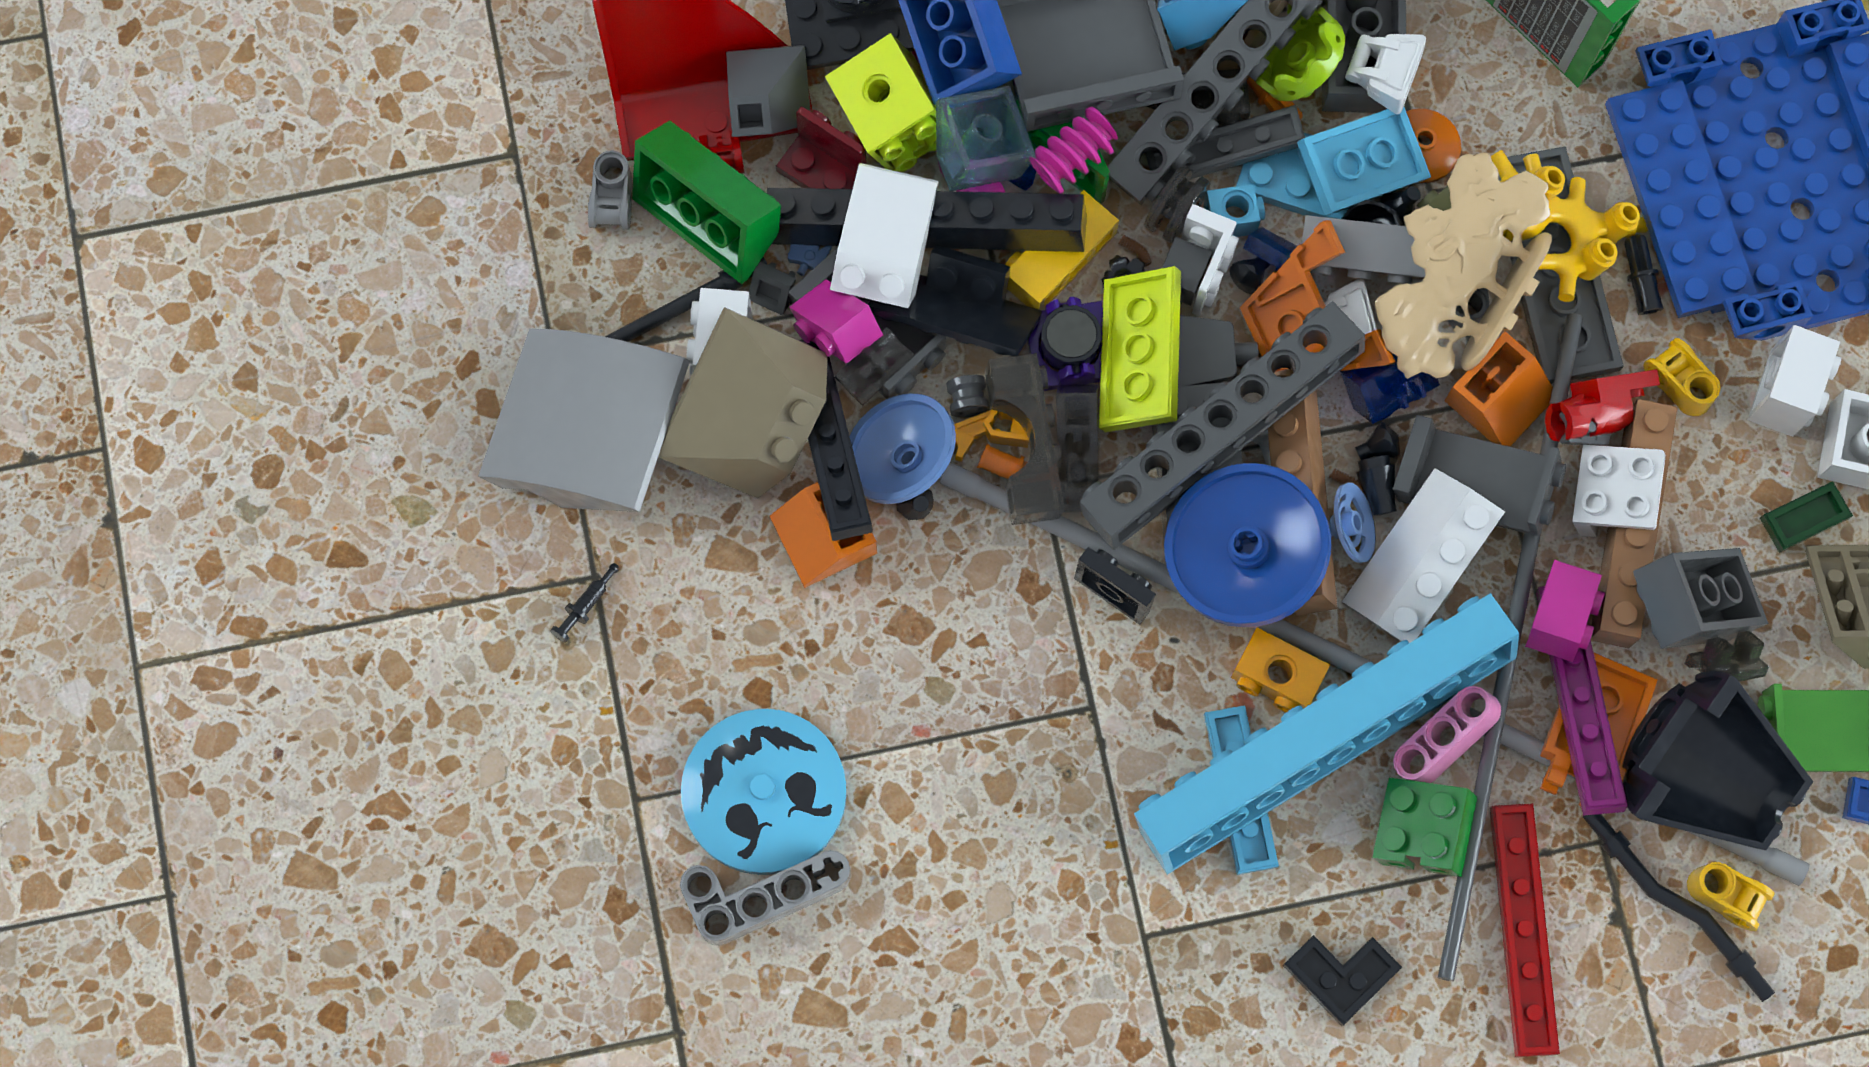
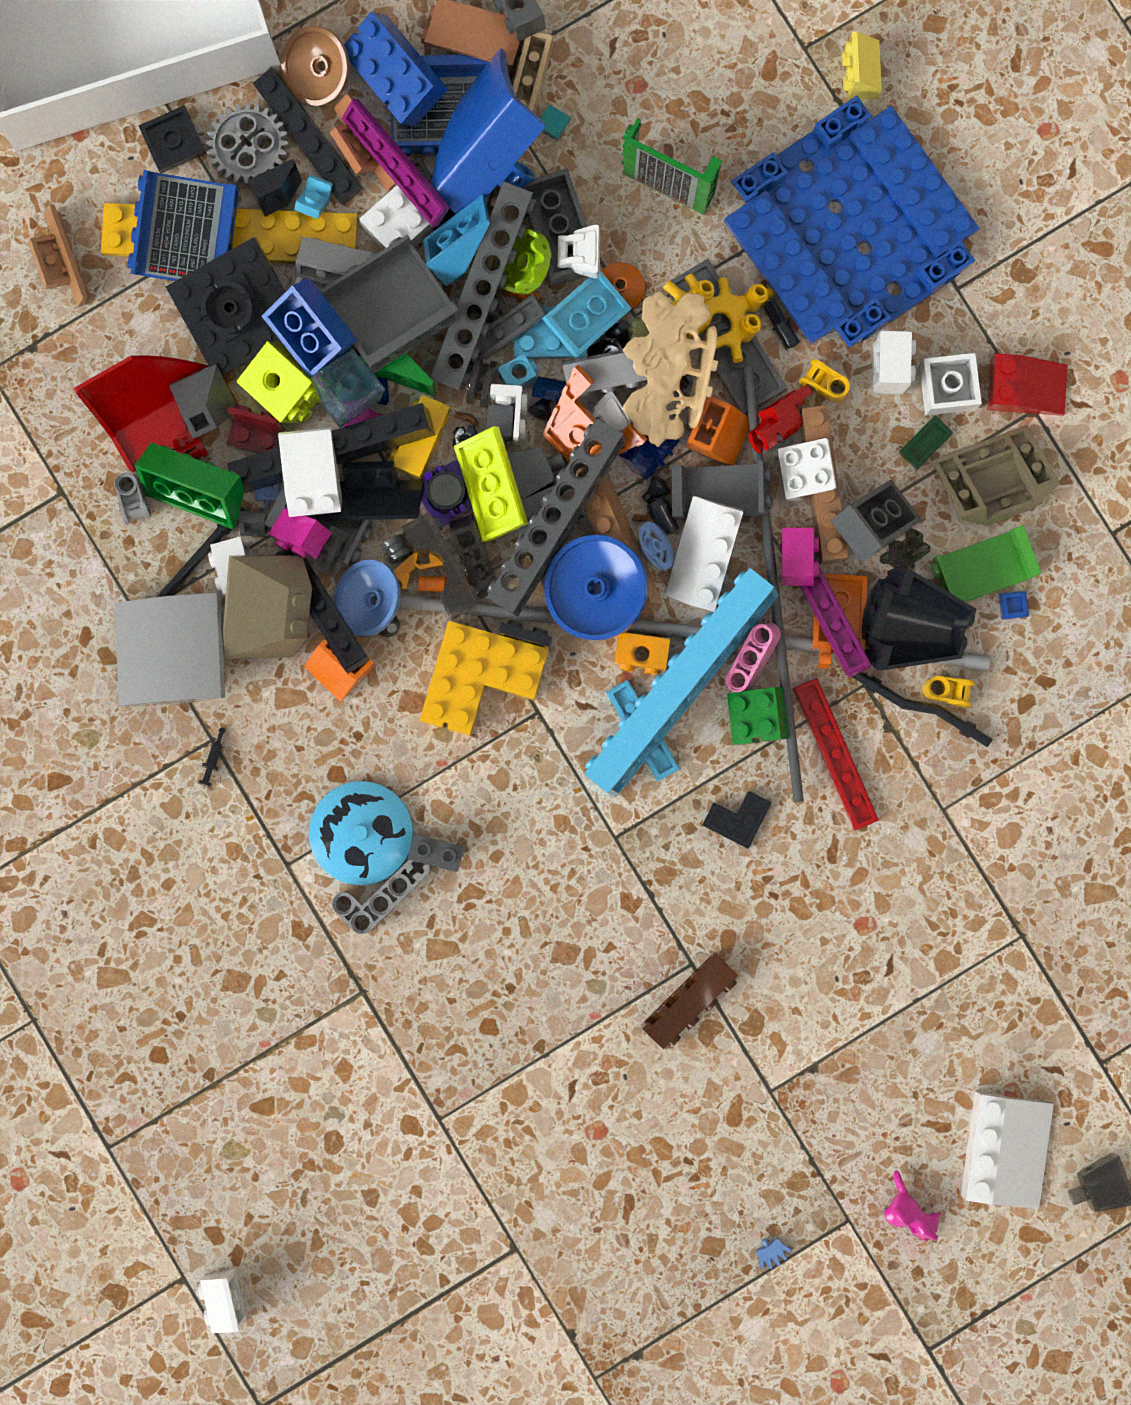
camera: 15 degrees left, 10 degrees up
(867, 857) = (436, 853): none -> dark grey bracket
(1018, 598) = (471, 662): none -> yellow piece
(1073, 149) = (406, 378): dark pink piece -> none

